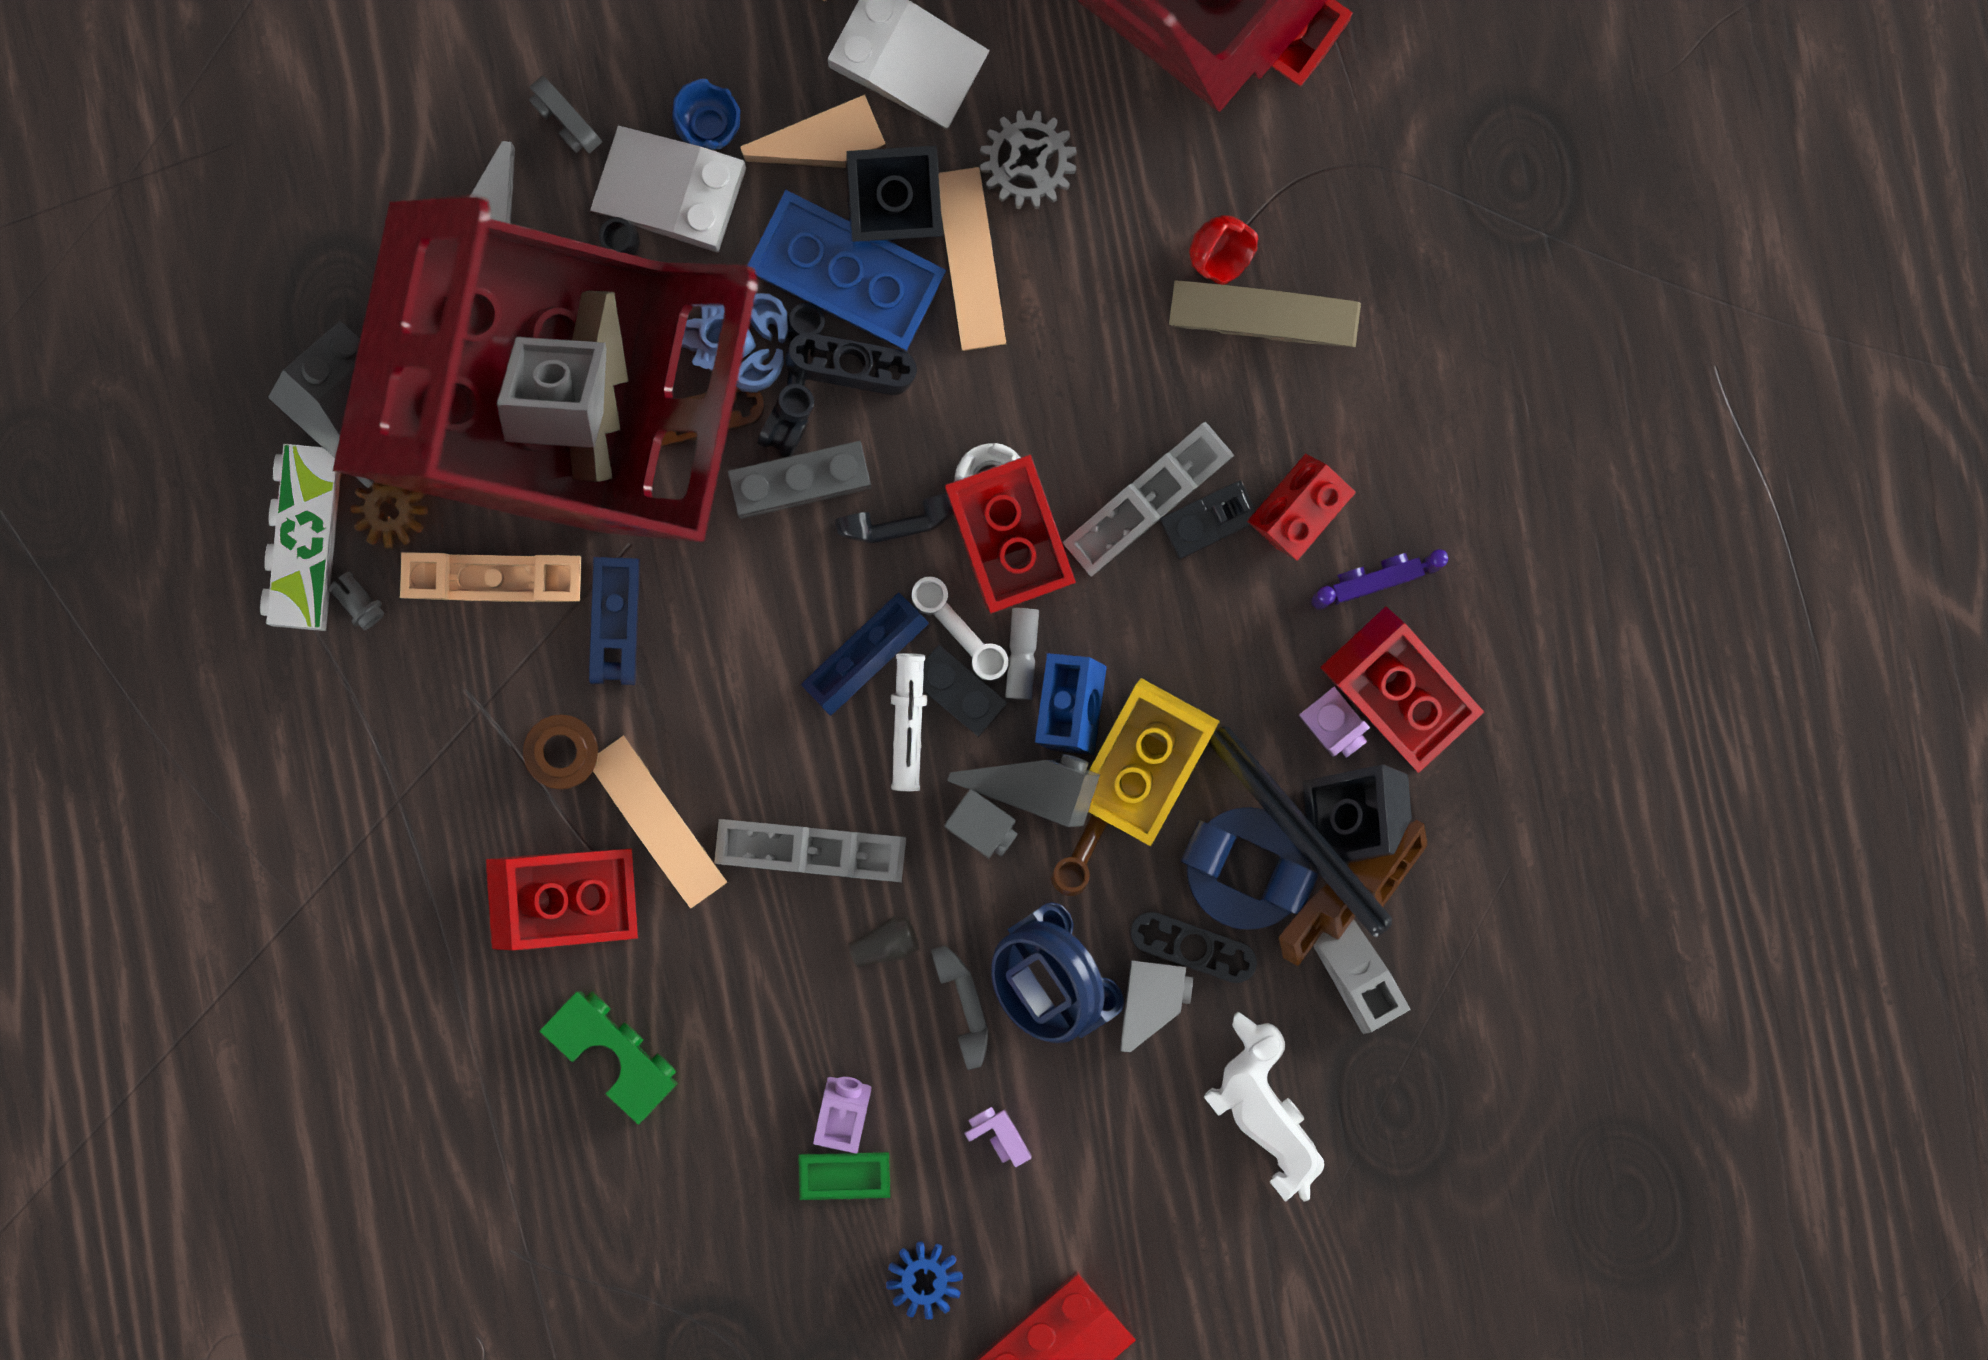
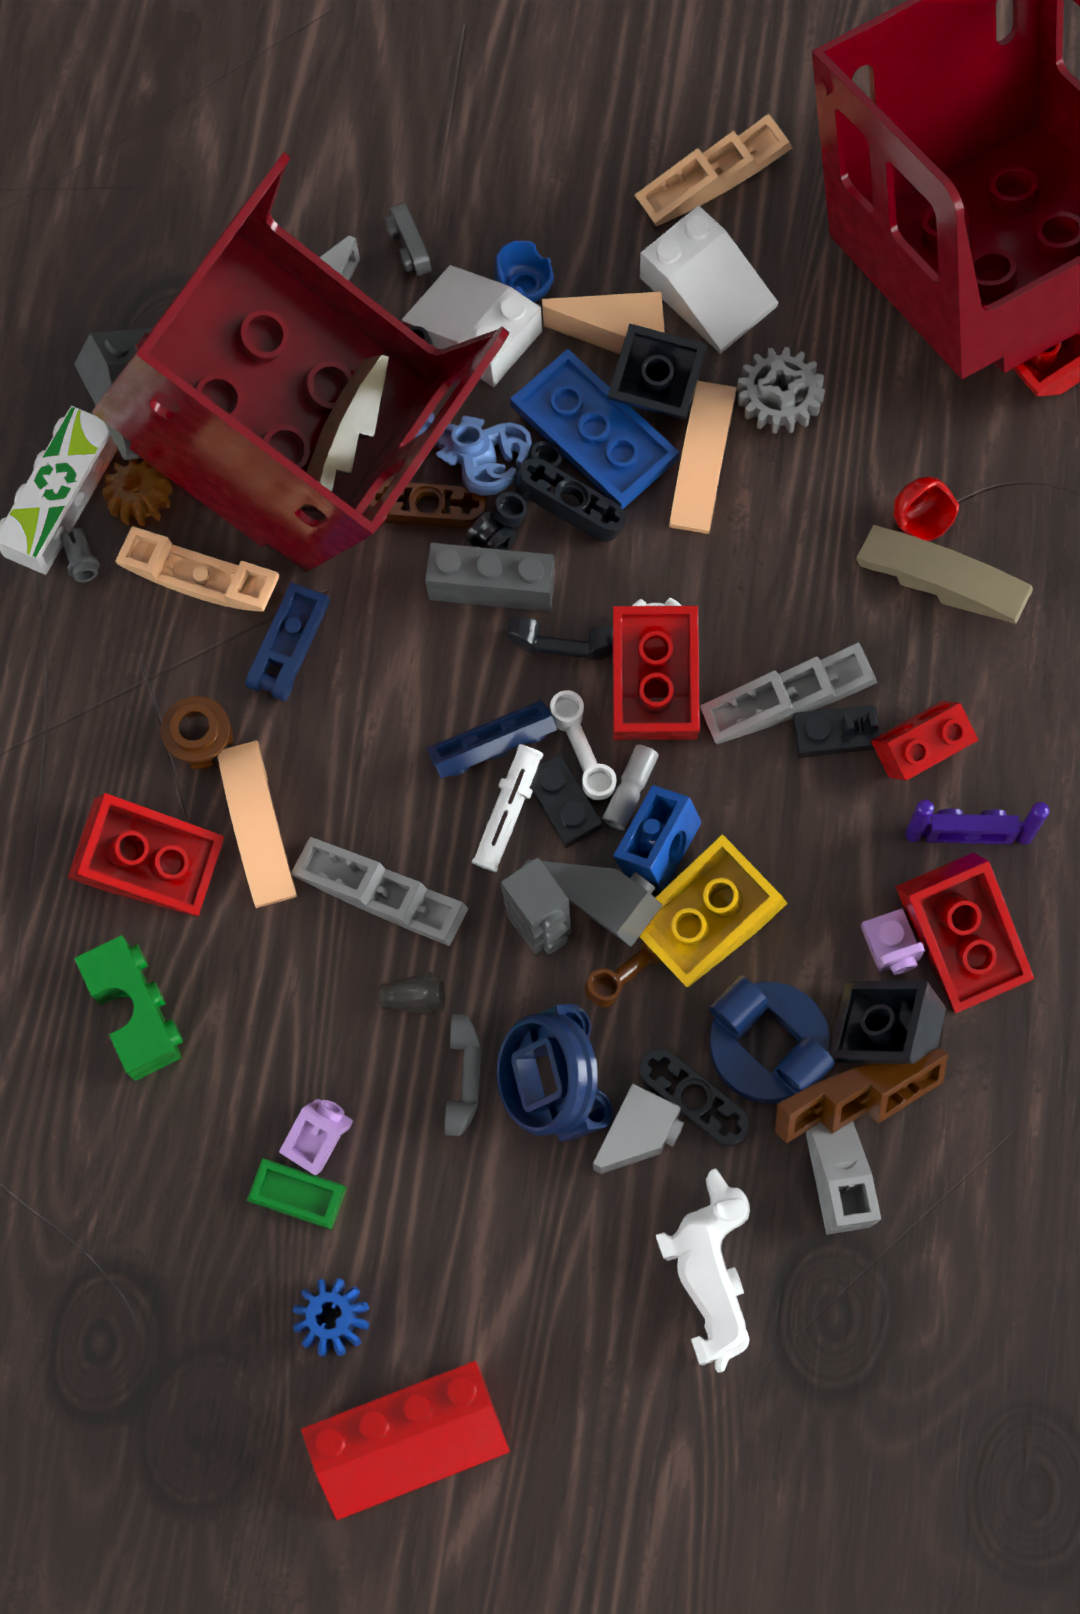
camera: 30 degrees right, 15 degrees down
(553, 392) = (303, 413): light grey slope -> none
(1007, 1140) = (456, 1215): lavender bracket -> none
(1300, 831) = (831, 1022): black axle -> none

